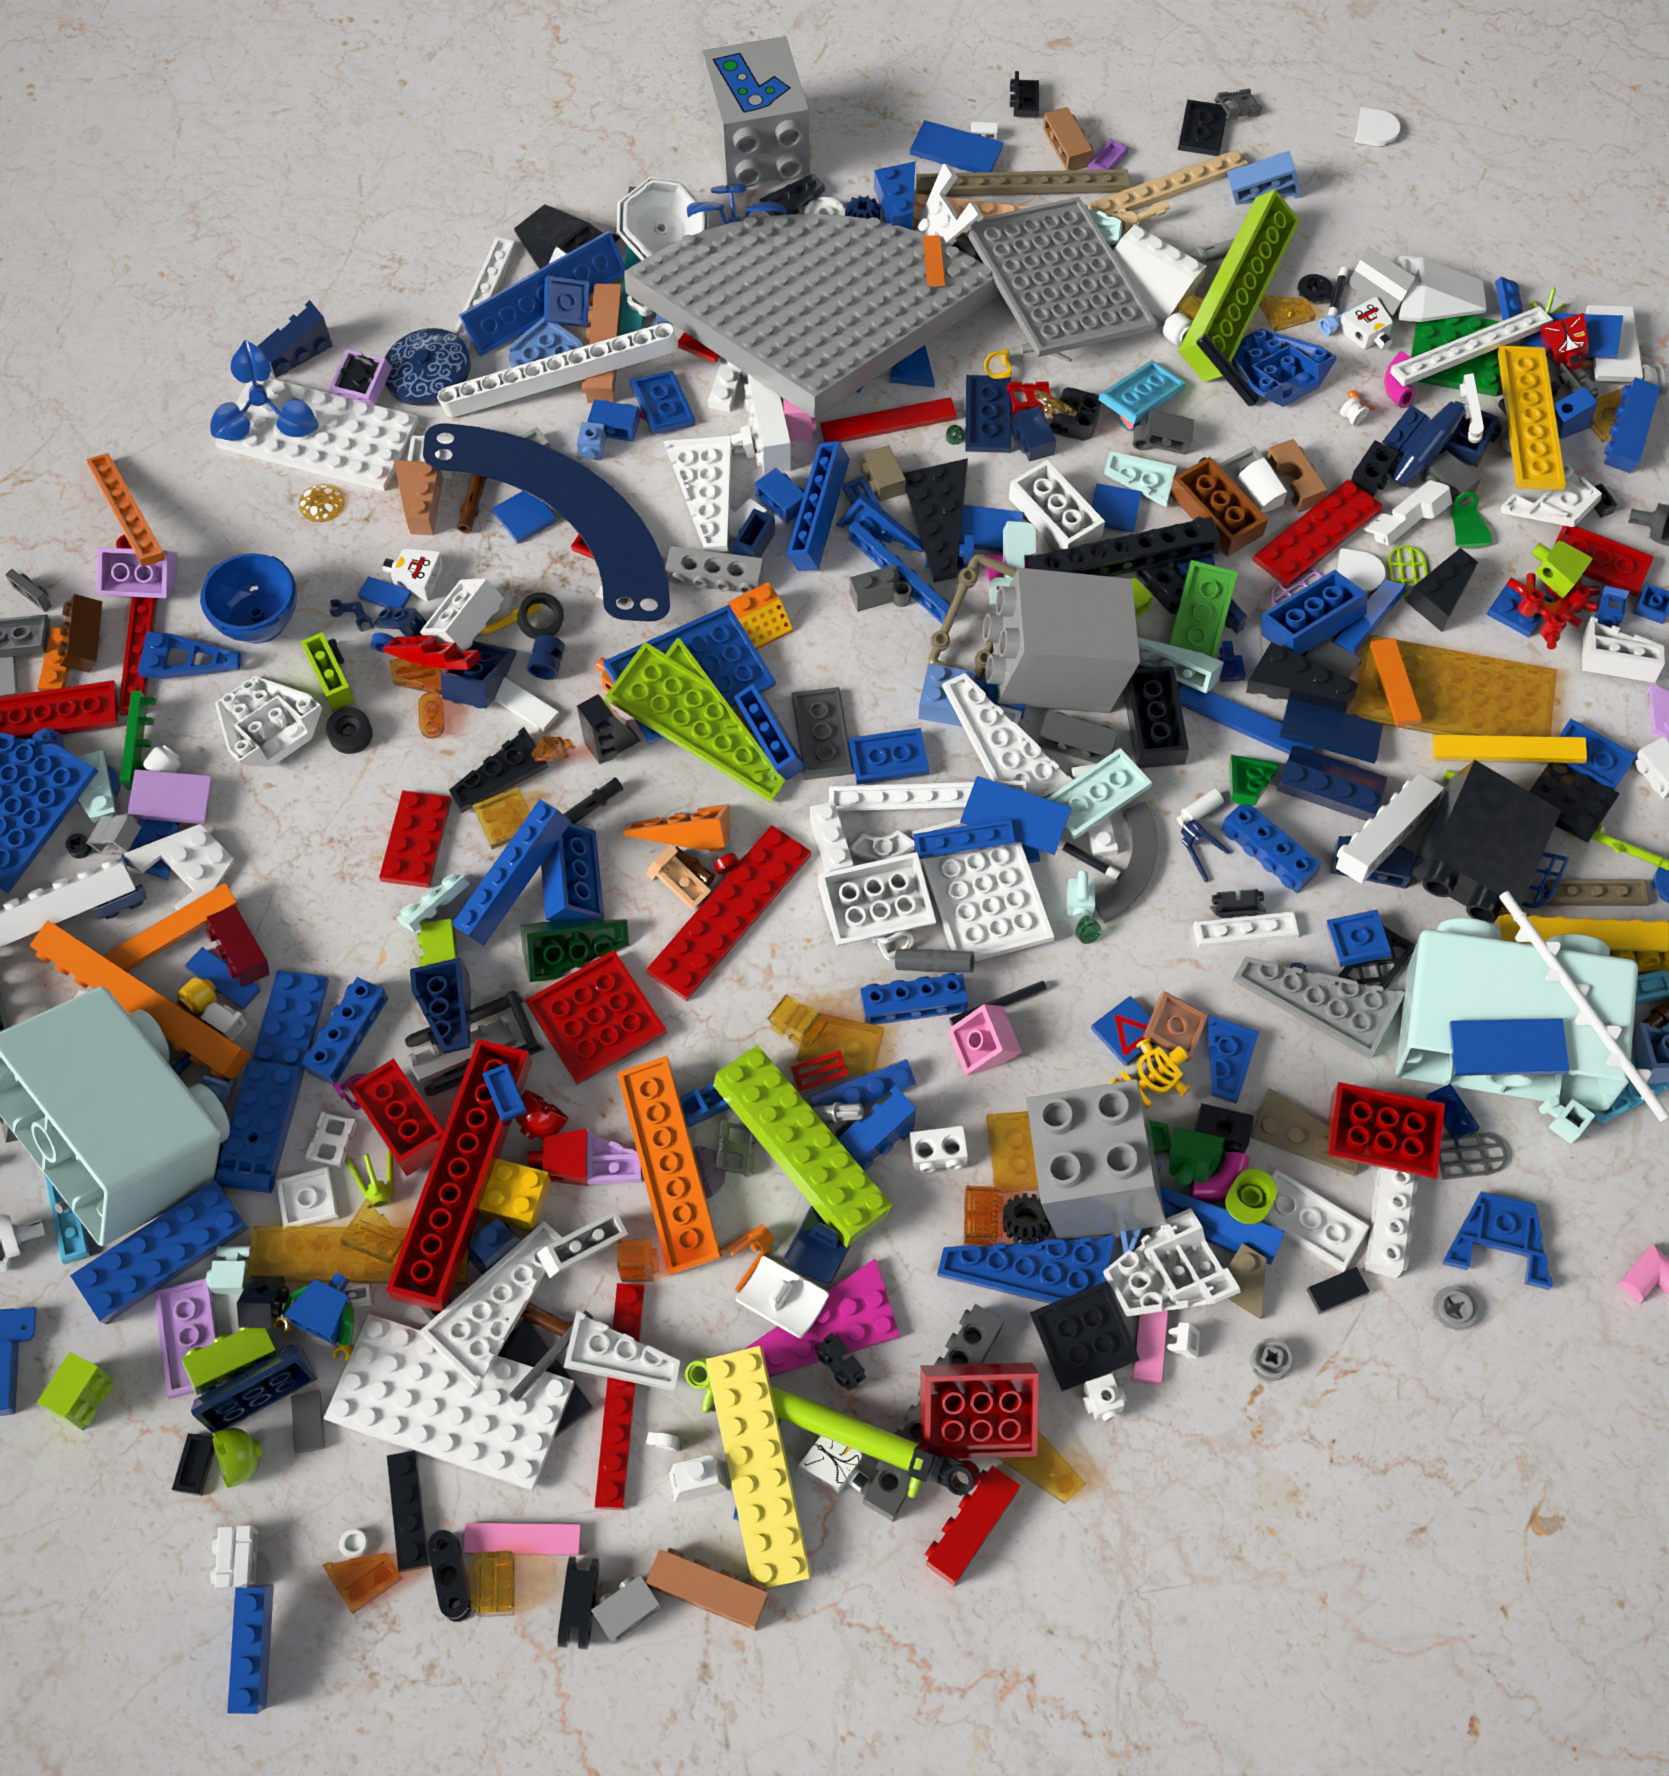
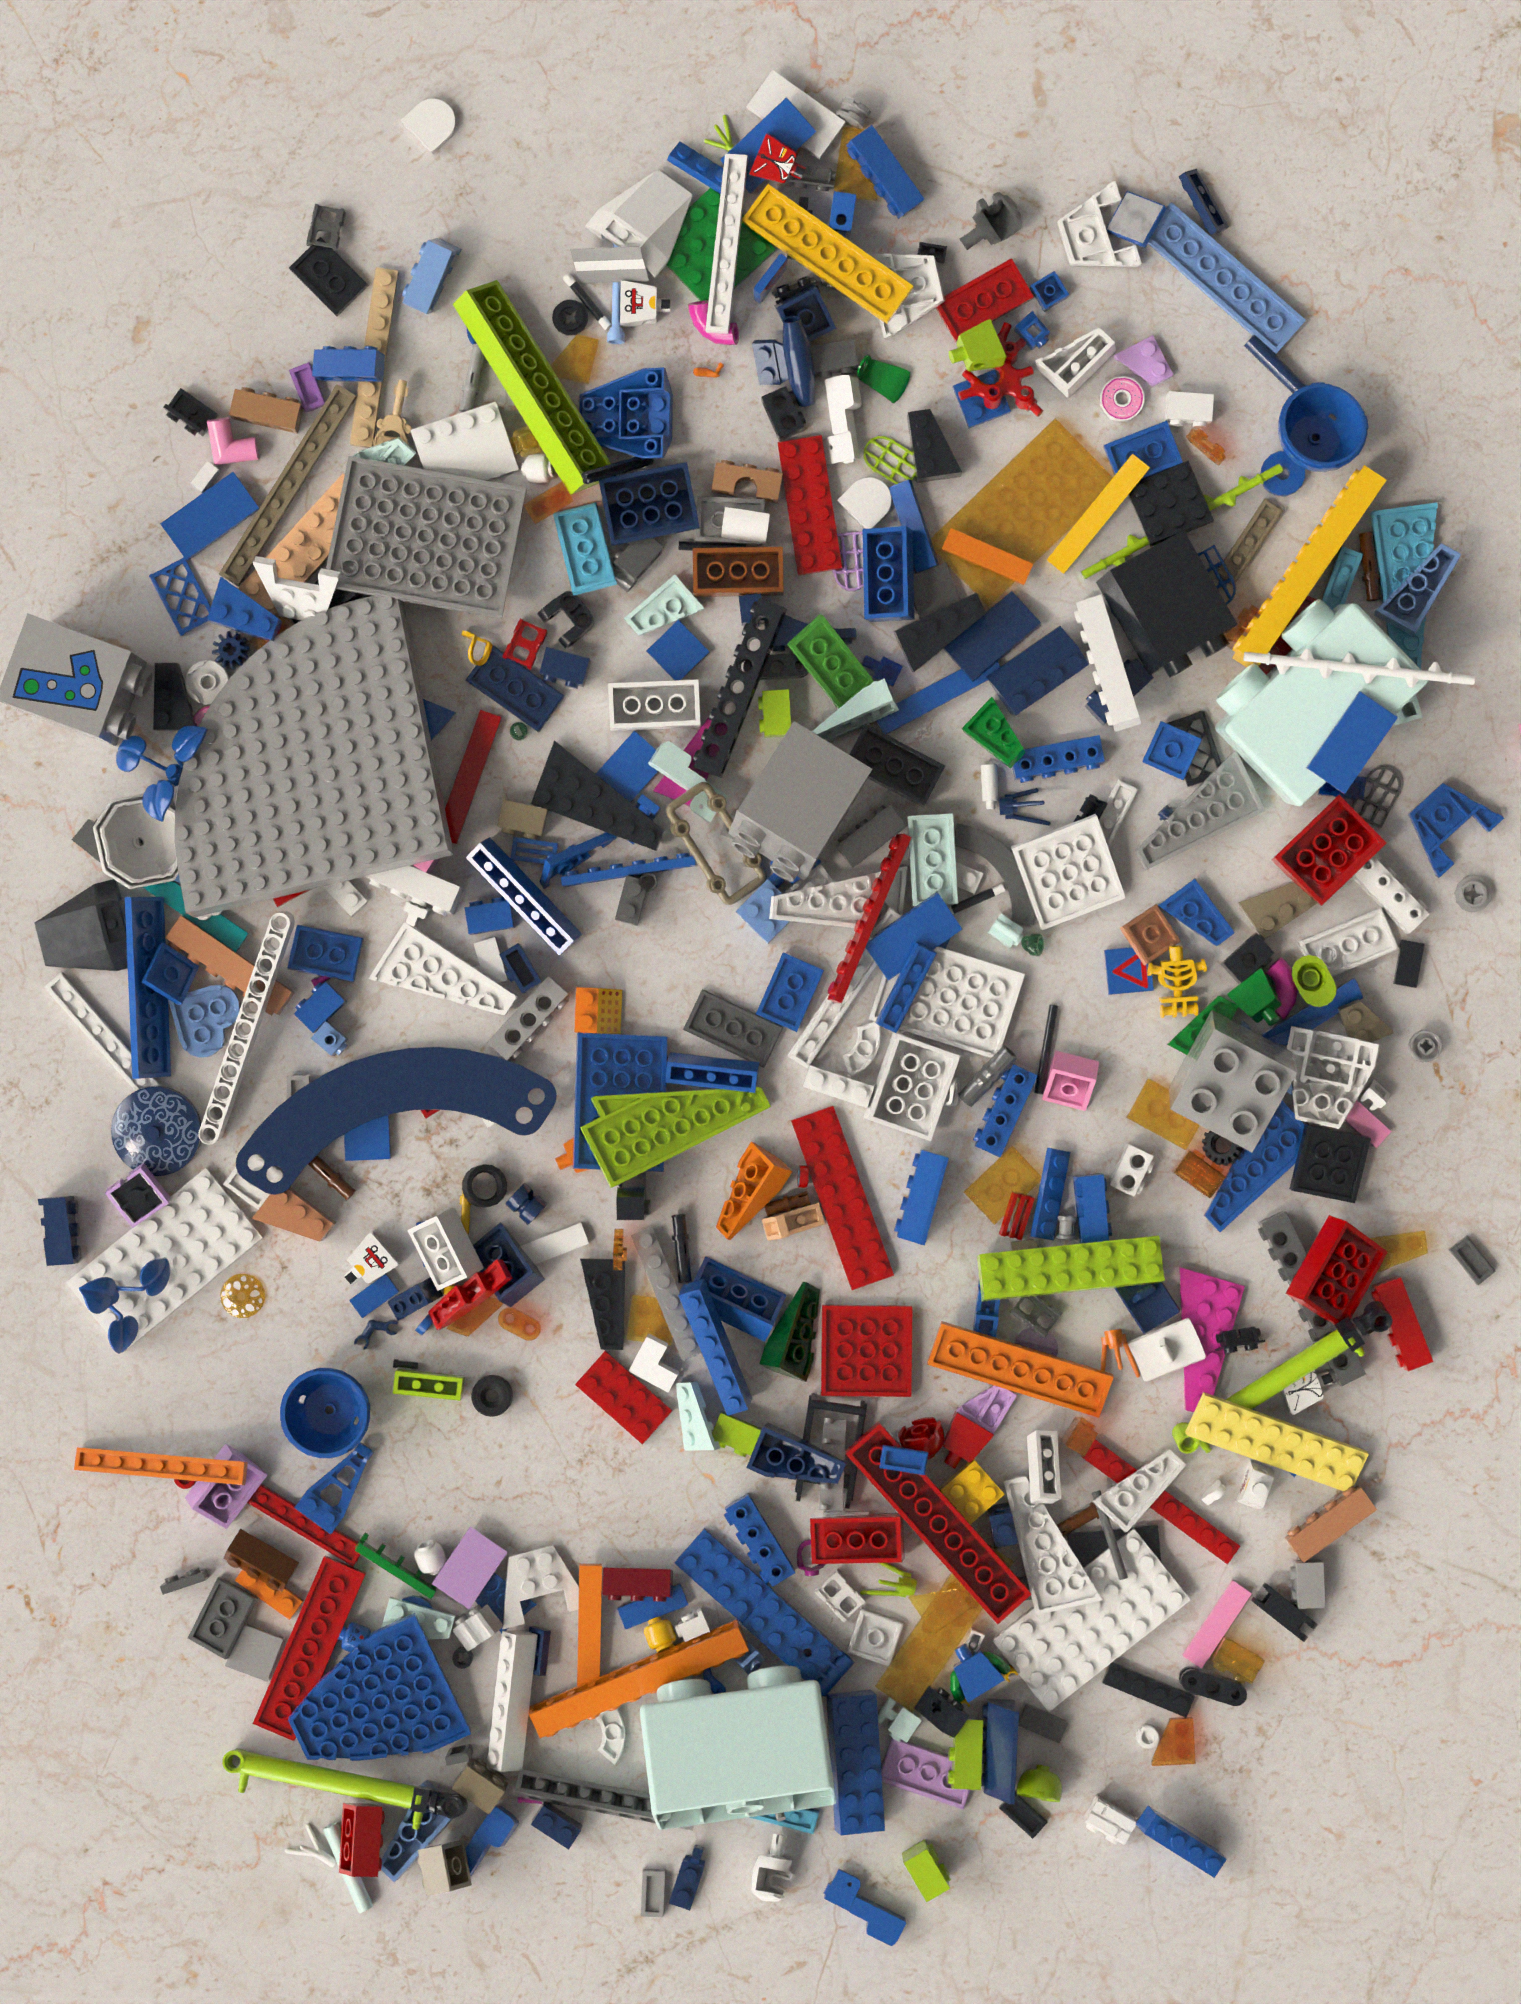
camera: 55 degrees left, 25 degrees up
(266, 721) = (440, 1458): white wedge -> none
(458, 838) = (648, 1364): none -> white tile
(554, 793) = (666, 1292): none -> light grey plate
(779, 975) = (922, 1197): none -> blue slope
(796, 1021) = (970, 1208): clear yellow brick -> none
(839, 1112) = (1064, 1228): light grey axle -> none
(891, 150) = (190, 578): none -> blue window
(933, 260) = (345, 638): orange sticker -> none
(993, 768) = (865, 925): none -> red plate
(1017, 130) = (225, 448): none -> bright pink brick
(1051, 404) = (551, 634): clear yellow dish -> none
(1090, 1560) = (1472, 1260): none -> dark grey tile
(1100, 1389) = (1371, 1179): white brick -> none
(1148, 165) = (348, 364): none -> blue brick
(1157, 346) = (548, 502): none -> clear orange brick
(1177, 914) = (1068, 872): none -> white plate
(1221, 409) = (649, 504): none -> dark blue slope
(1354, 411) = (717, 385): white wheel -> none
(1472, 409) = (798, 306): white plate -> none
(1486, 387) = (770, 278): none -> blue tile
(1623, 701) = (1128, 387): none -> tile
(1644, 806) = (1212, 451): none -> clear orange plate

